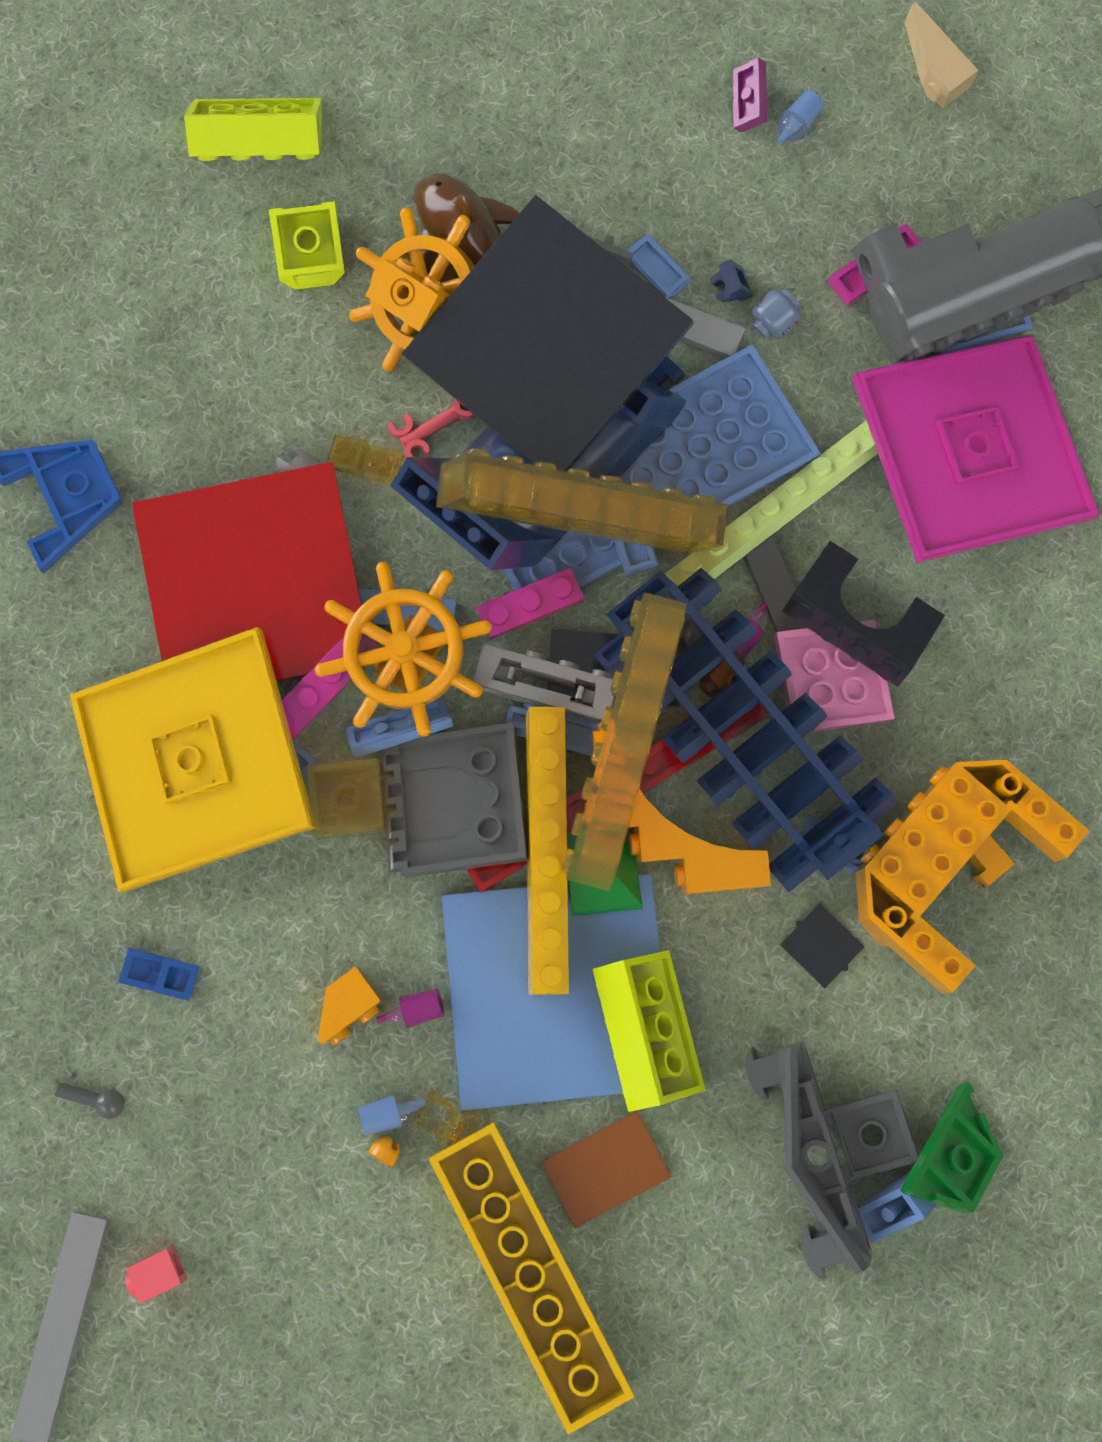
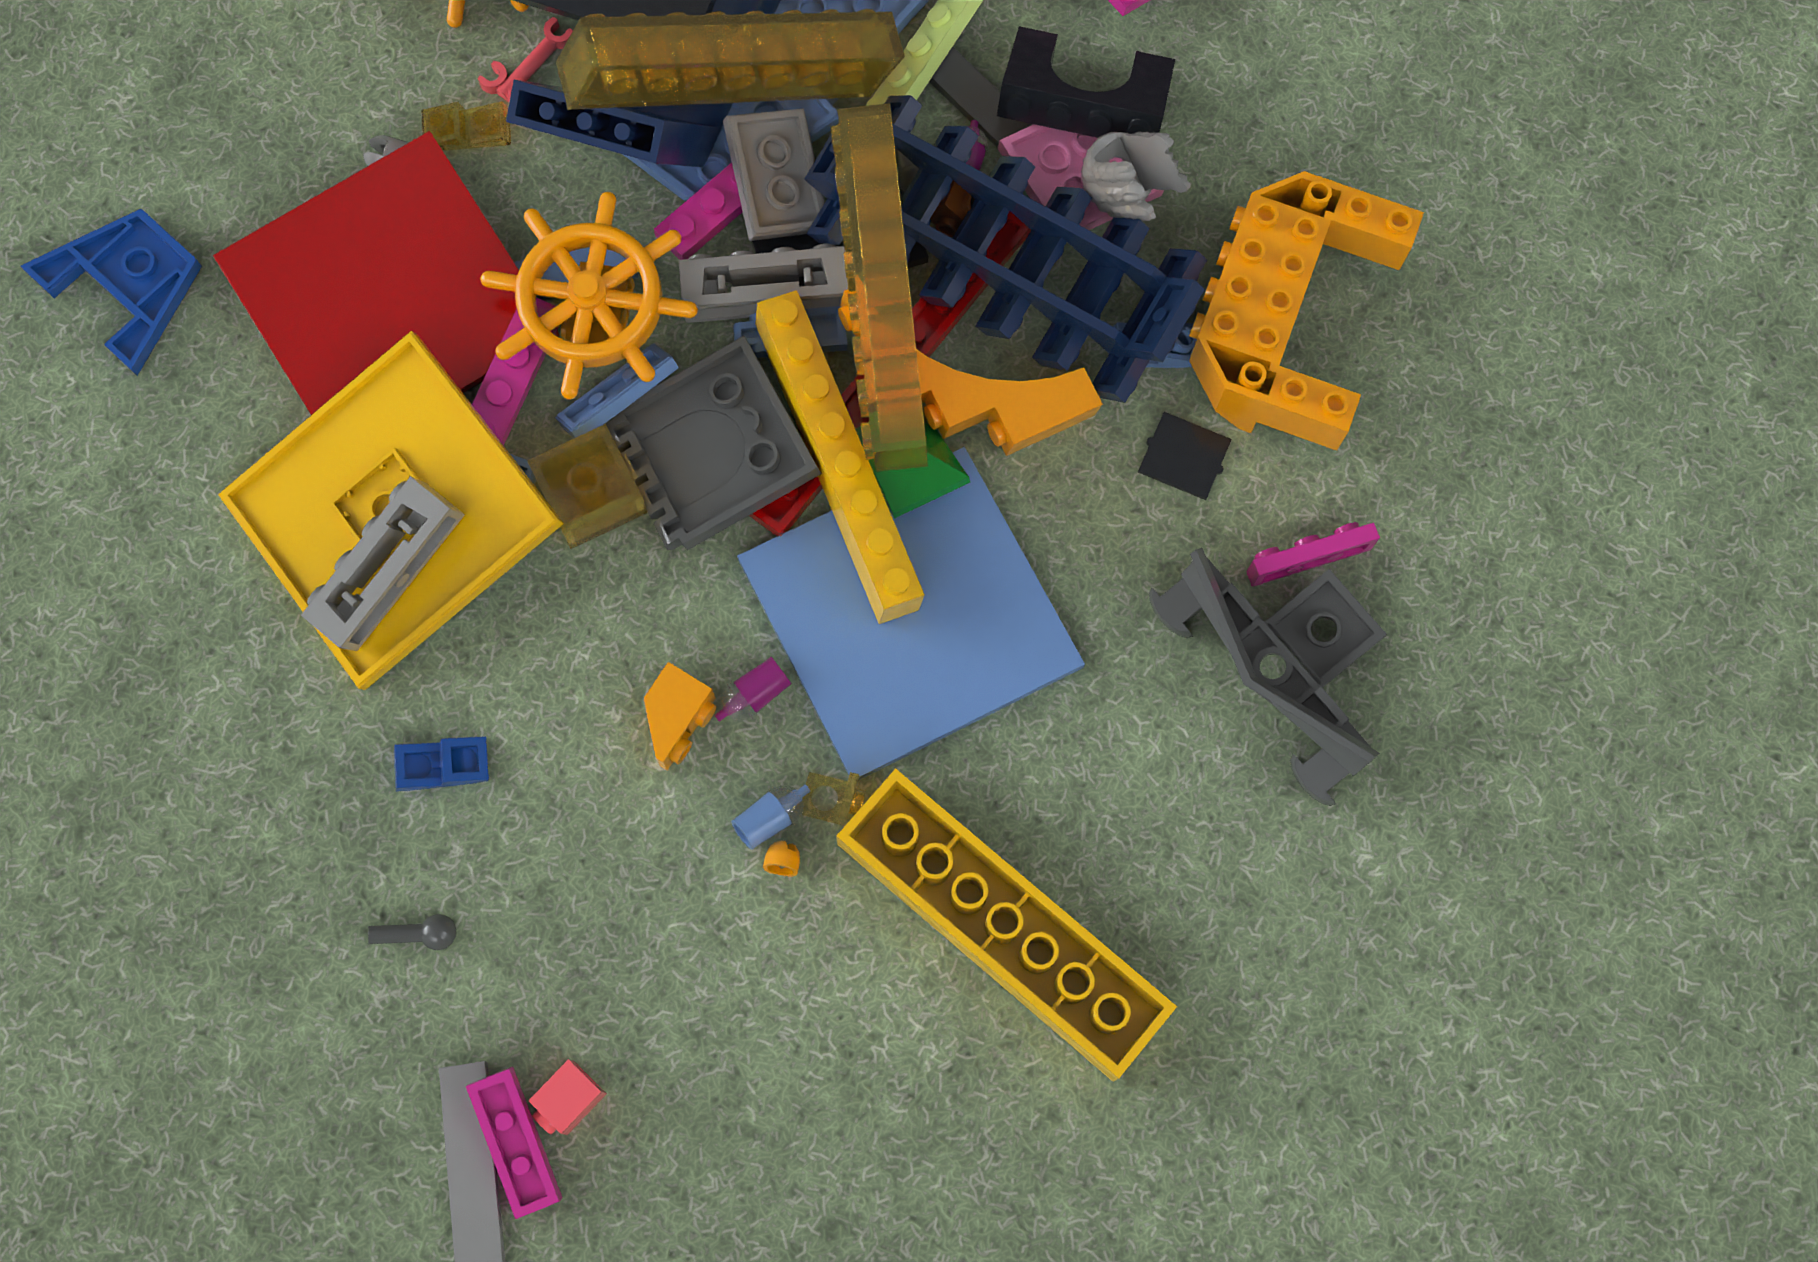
camera: 20 degrees left, 5 degrees down
(104, 1293) = (514, 1142): none -> dark pink plate
(119, 829) = (352, 618): none -> light grey brick
(586, 589) = (769, 163): none -> light grey tile
(606, 1169) = (1042, 783): dark orange tile -> none
(648, 1030) = (1028, 608): neon yellow slope -> none
(882, 705) = (1125, 185): none -> light grey piece
(889, 1067) = (1312, 553): none -> dark pink plate
(892, 1210) = (1384, 692): medium blue slope -> none
(956, 1157) = (1425, 617): green wing -> none
(990, 862) = (1328, 297): light orange leg -> none

